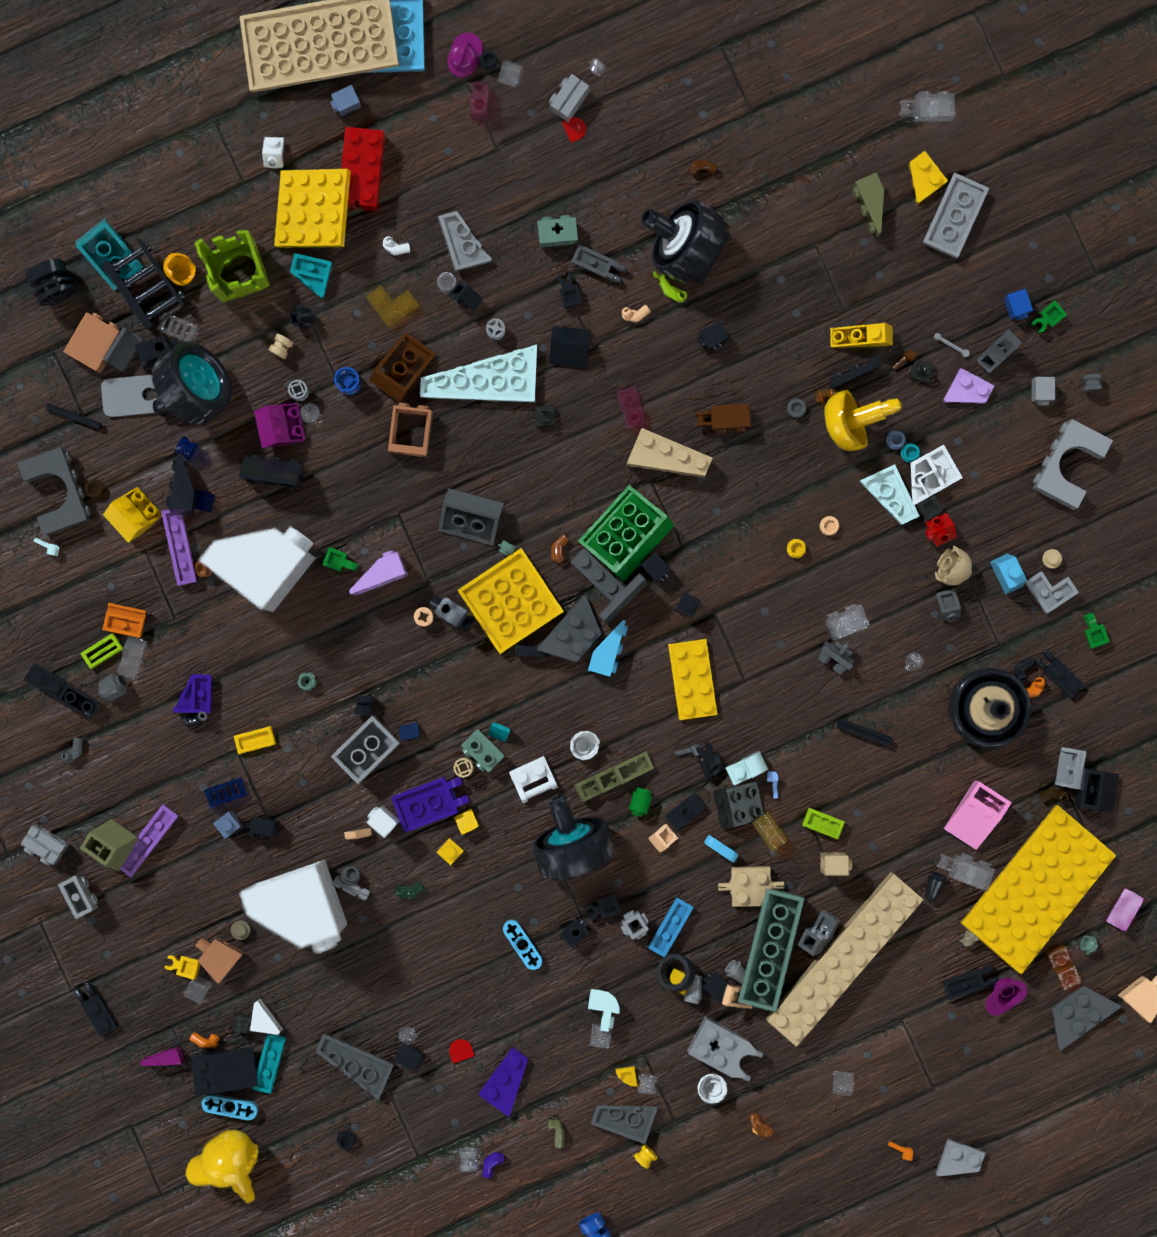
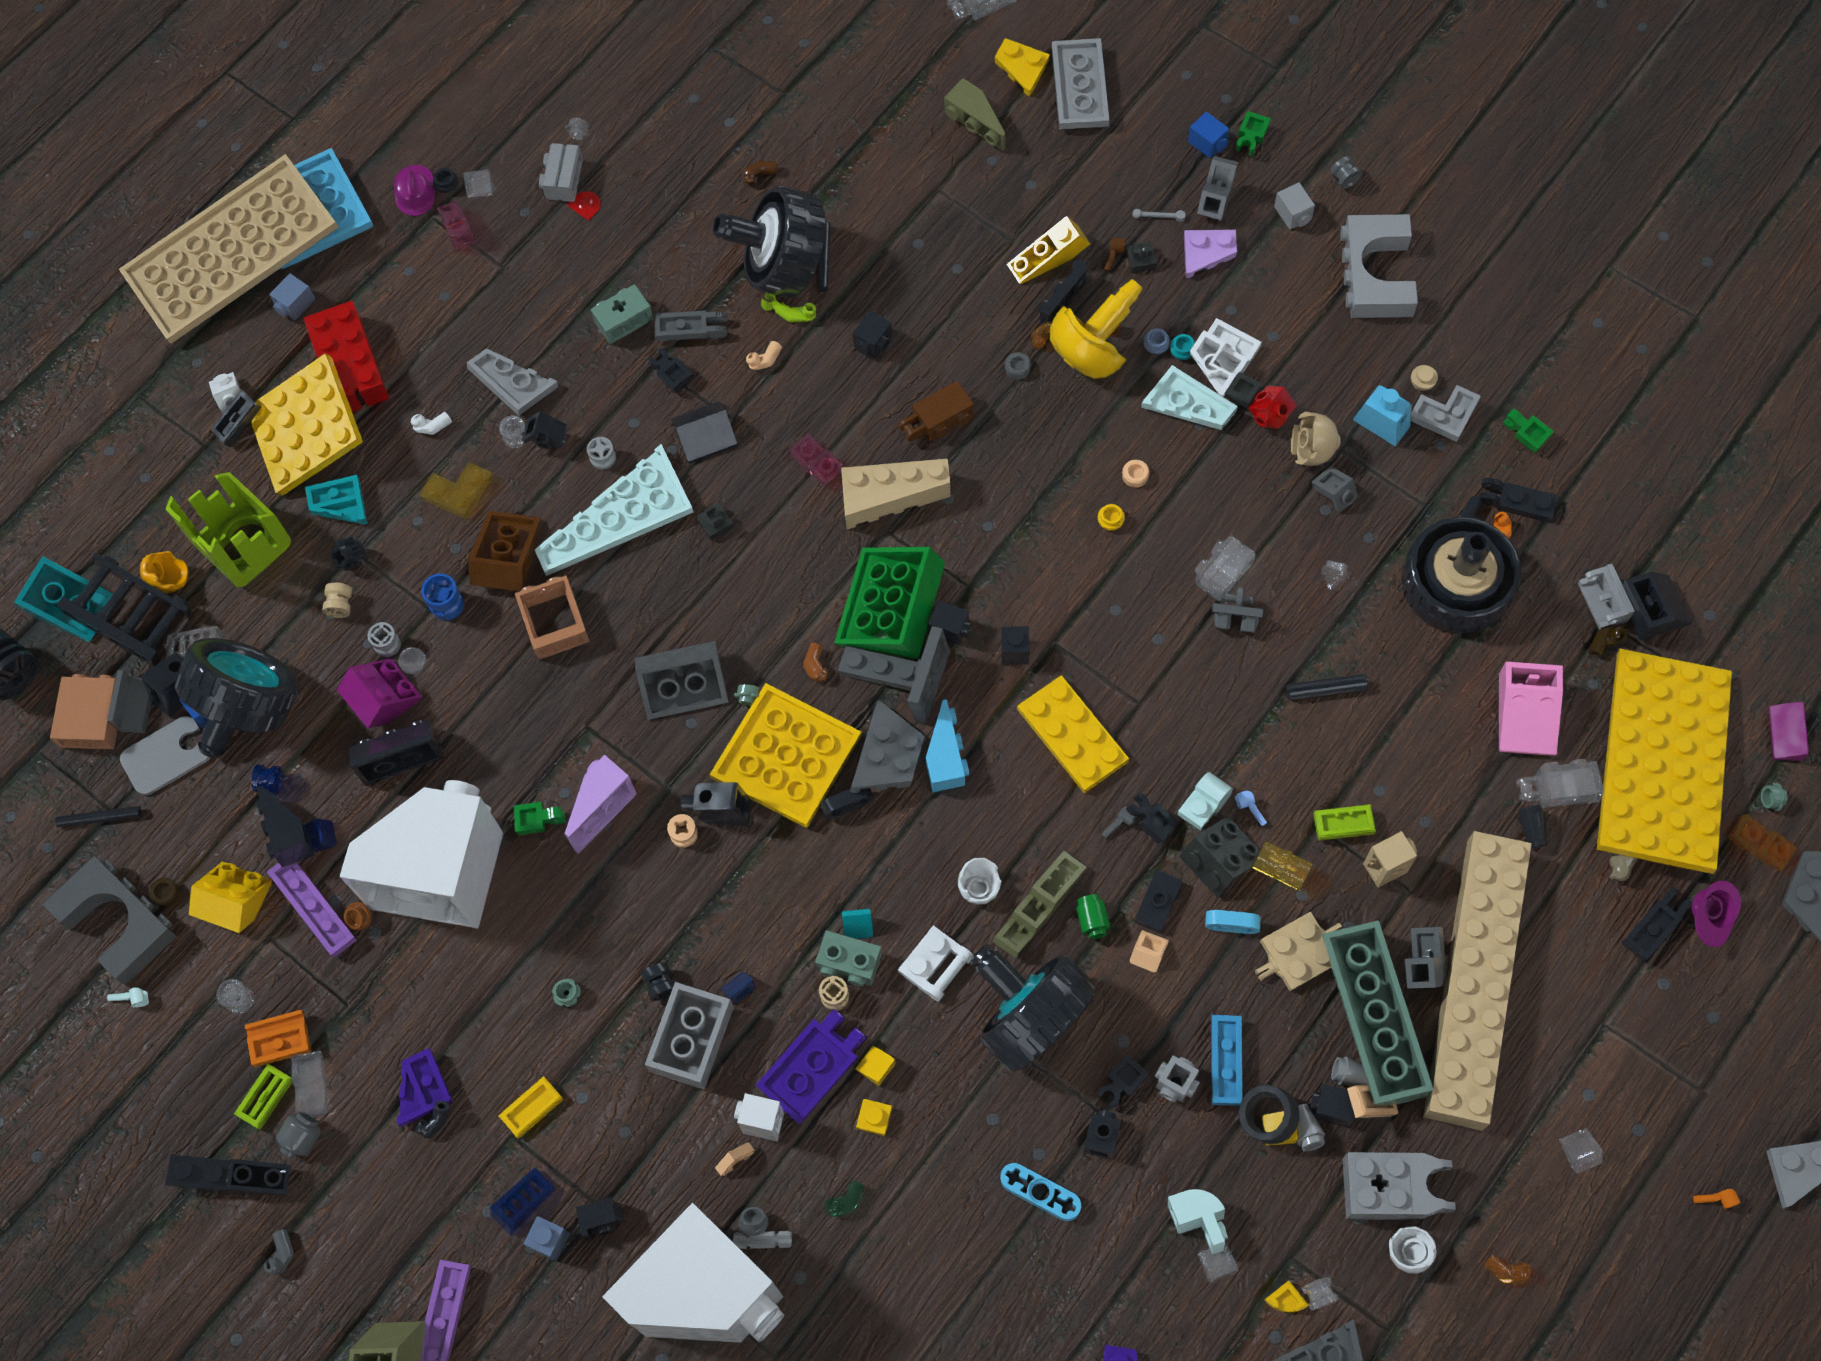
camera: 25 degrees left, 20 degrees down
(106, 579) = (229, 993): none -> clear wheel
(281, 176) = (237, 419): none -> black tile

